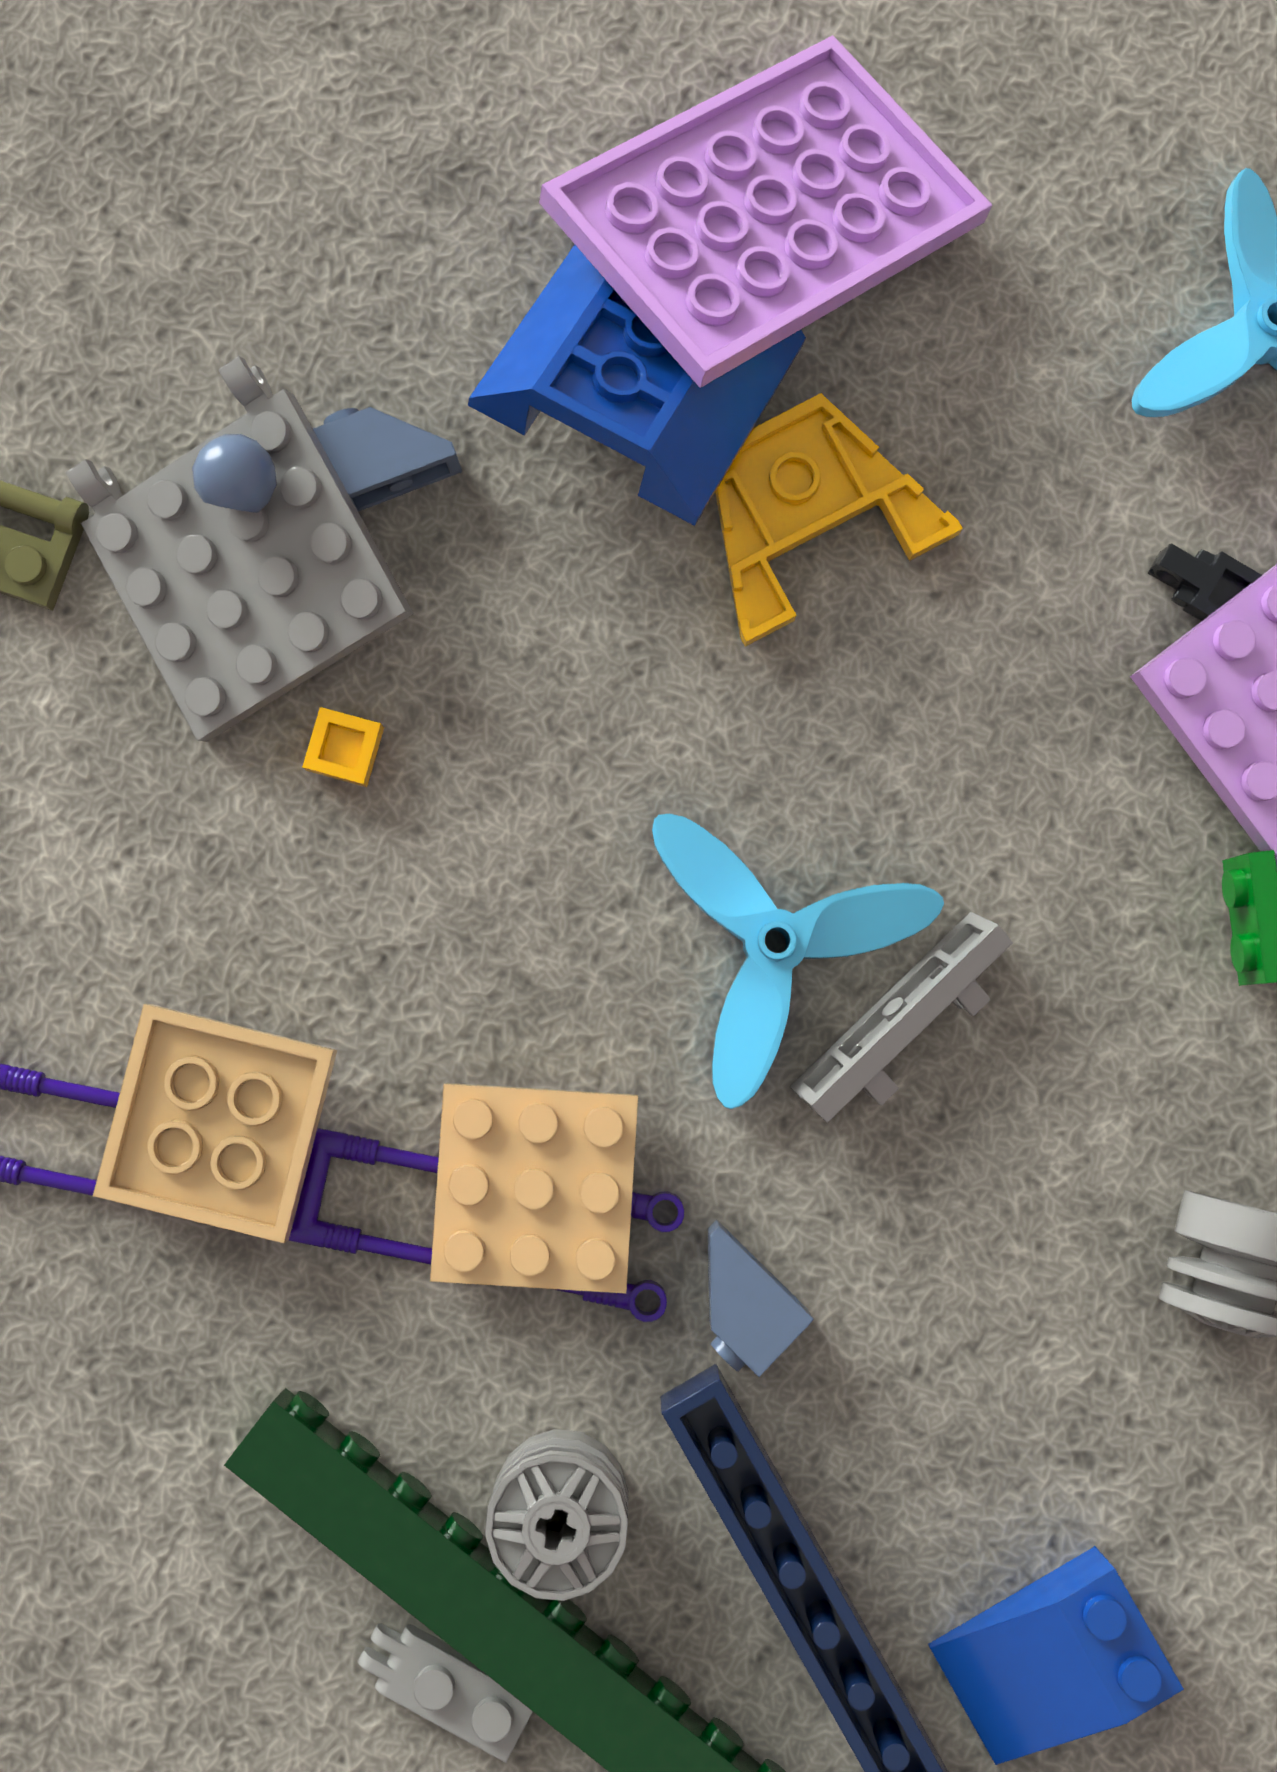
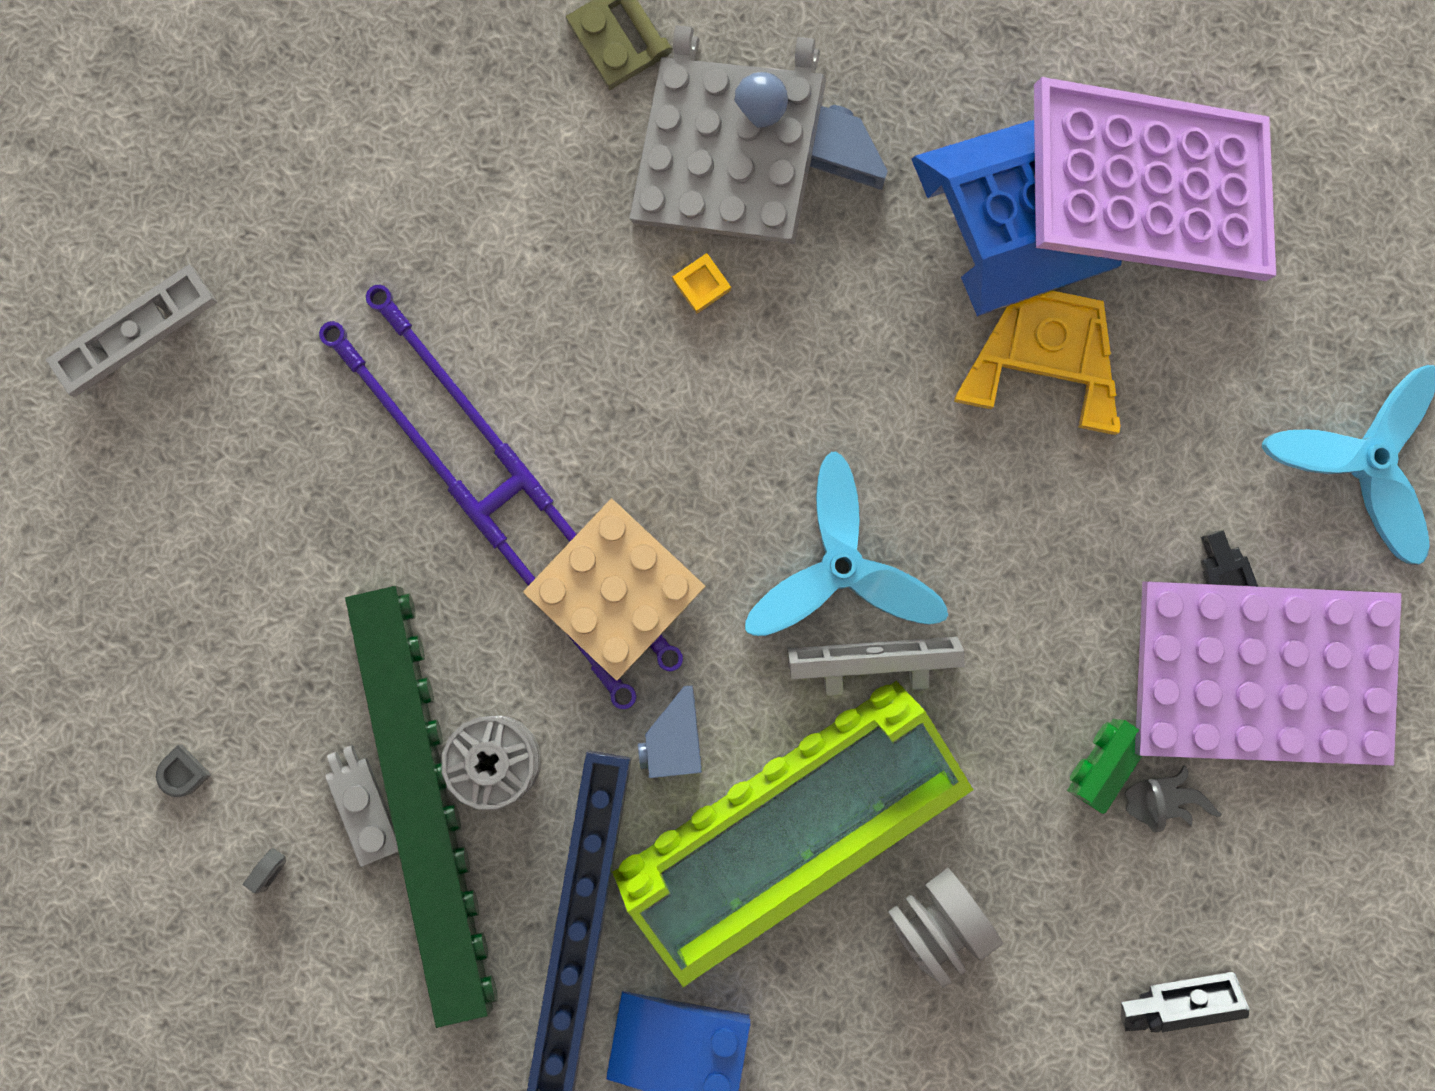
camera: 40 degrees right, 0 degrees up
(215, 1123) = (480, 422): tan plate -> none
(969, 1305) = (790, 832): none -> window

